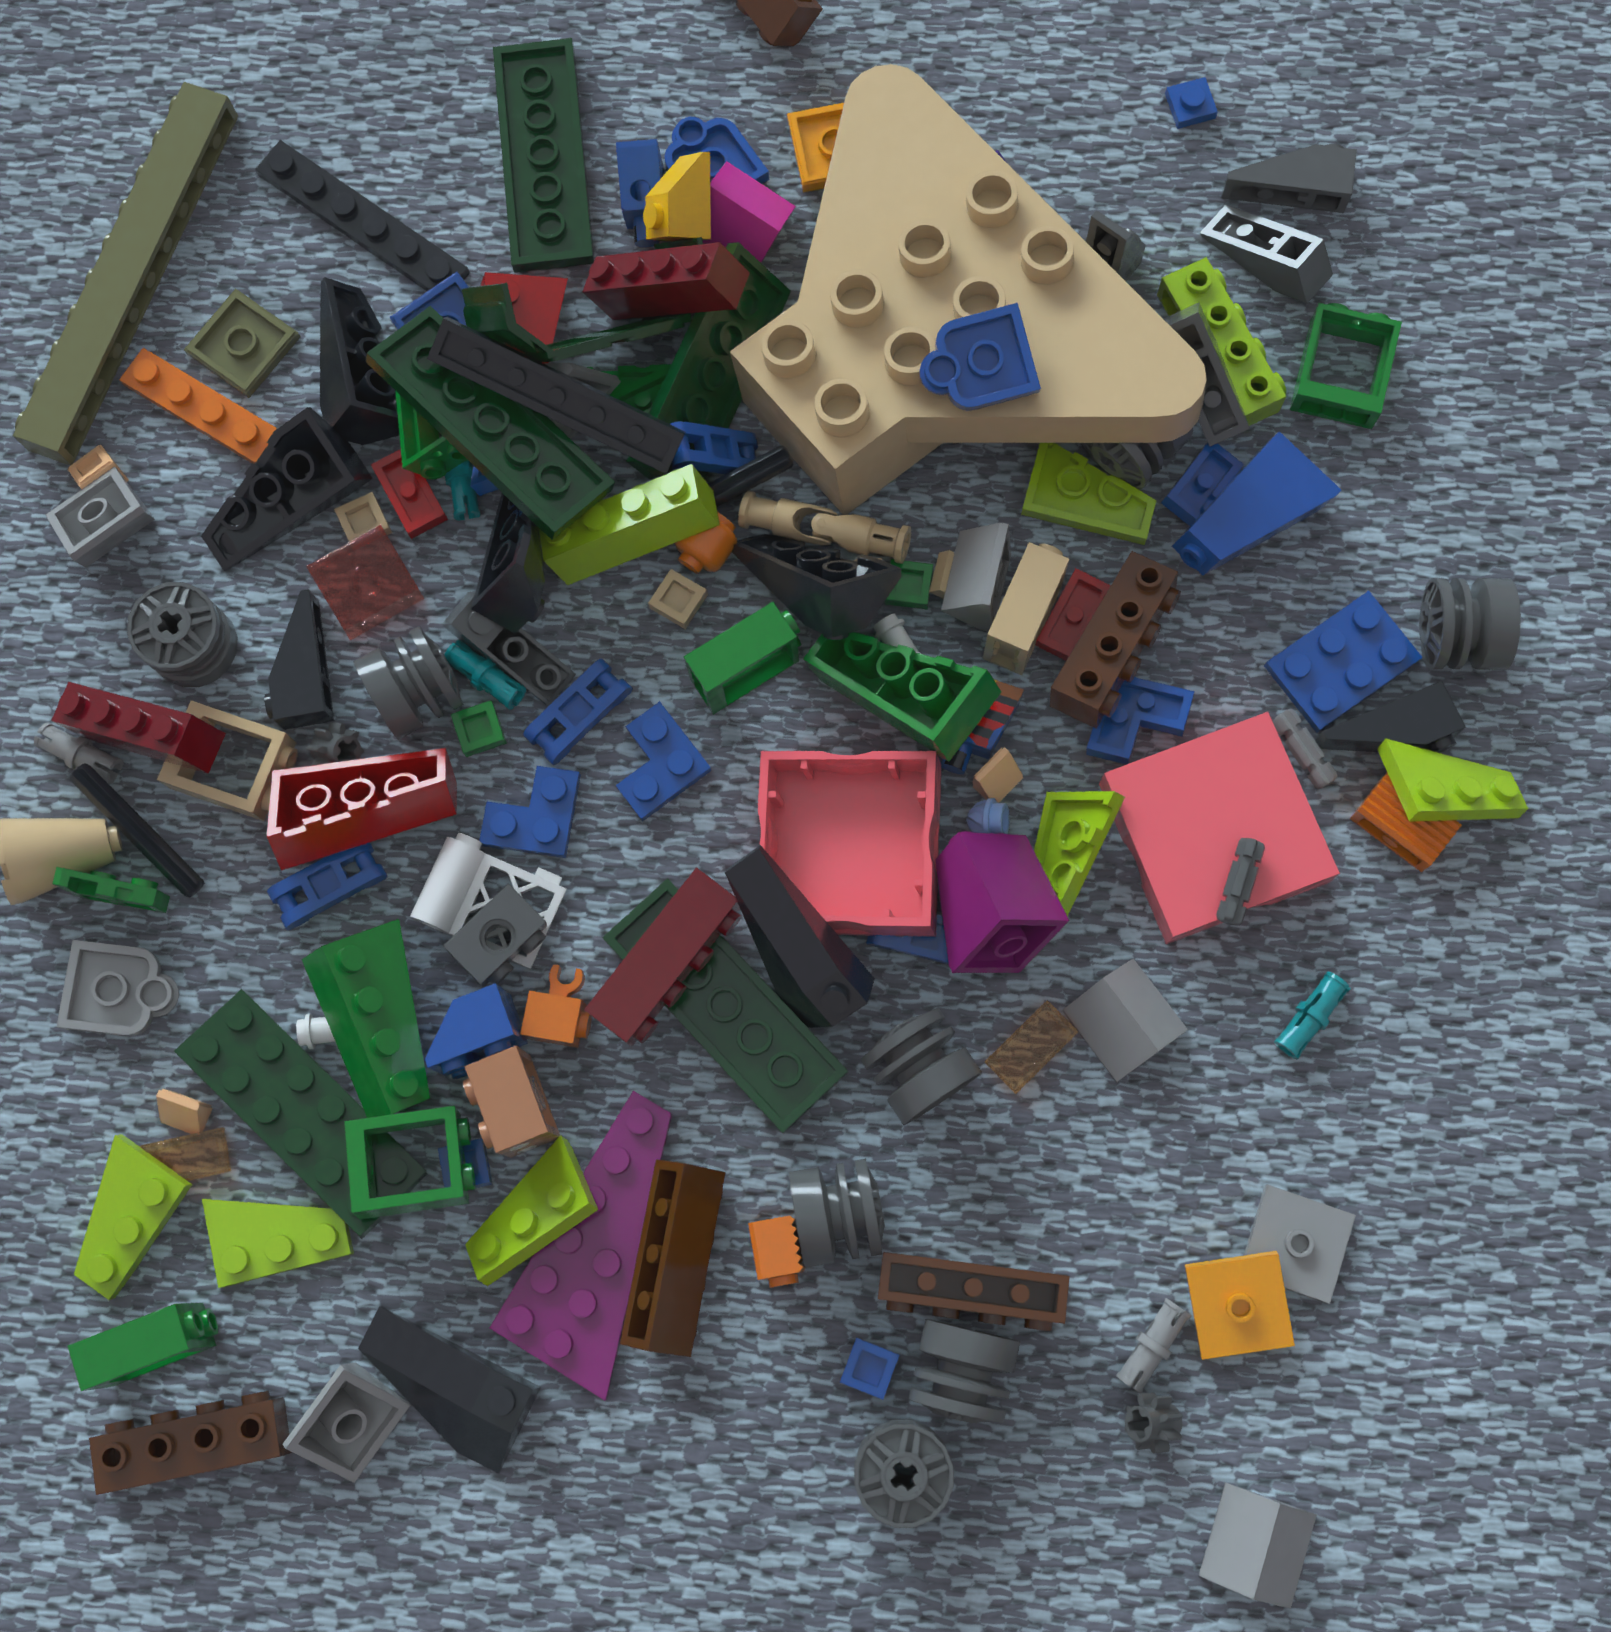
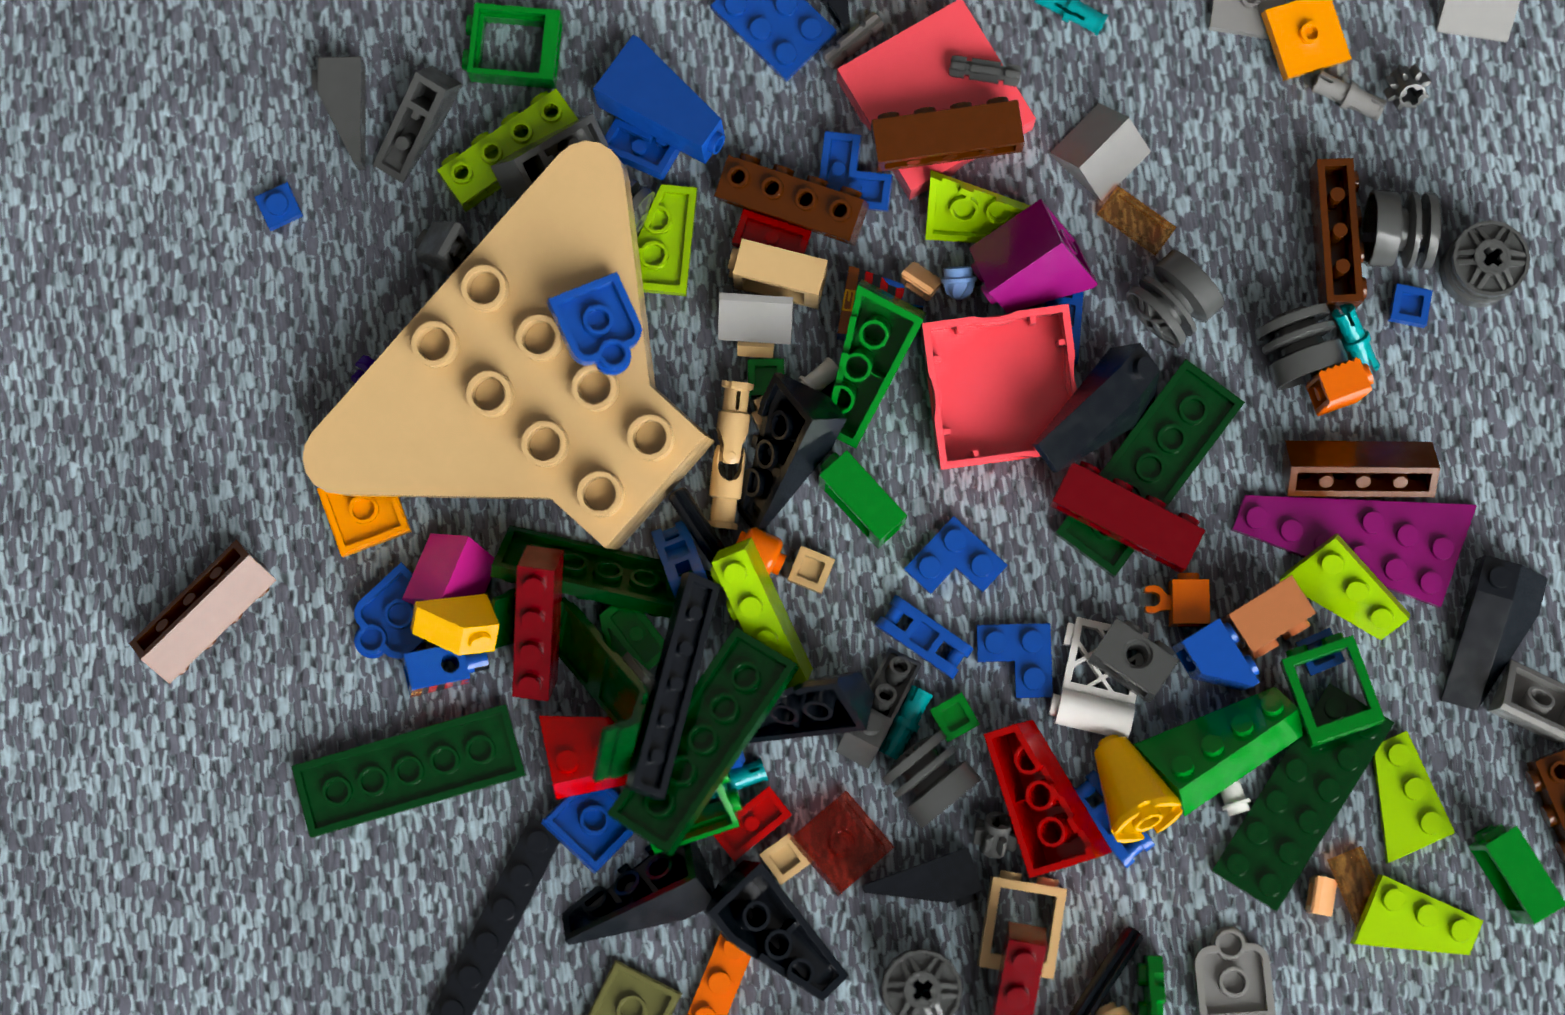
camera: 105 degrees left, 5 degrees up
(344, 902) = (1133, 791): none -> yellow cone
(834, 1285) = (1355, 337): none -> teal pin
(1163, 816) = (947, 134): none -> reddish brown brick

